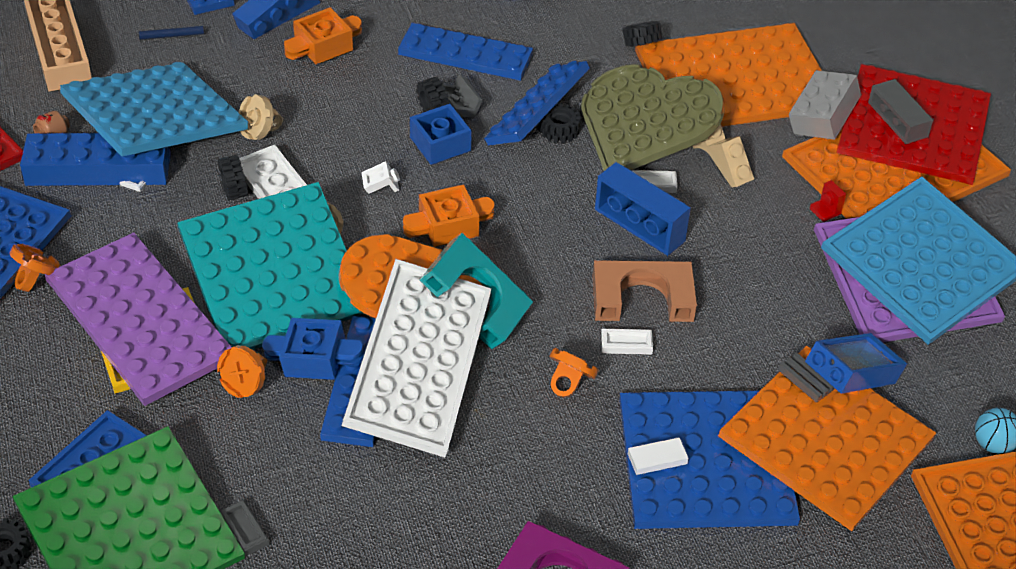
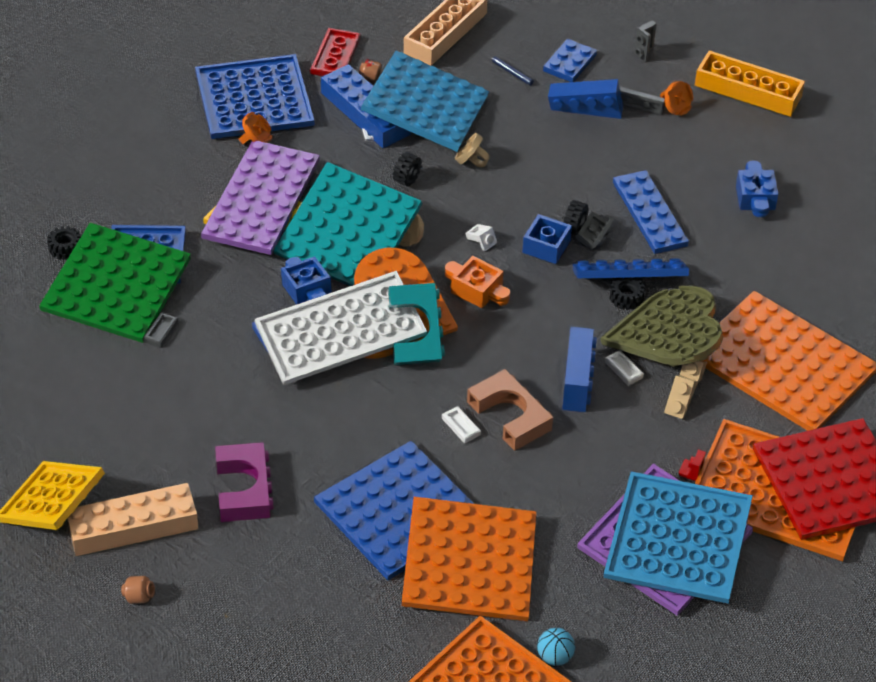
camera: 55 degrees right, 0 degrees up
(241, 371) = (263, 262): orange tile -> none
(269, 172) = (432, 189): white plate -> none
(322, 36) = (579, 136): orange brick -> none
(572, 368) = (403, 404): orange tile -> none
(642, 33) = (762, 286): black tyre -> none
(657, 456) = (369, 479): white tile -> none
(808, 375) = (502, 506): dark grey tile -> none
(825, 104) = (785, 414): light grey brick -> none
(855, 362) = (538, 540): blue window -> none
(900, 111) = (819, 457): dark grey brick -> none

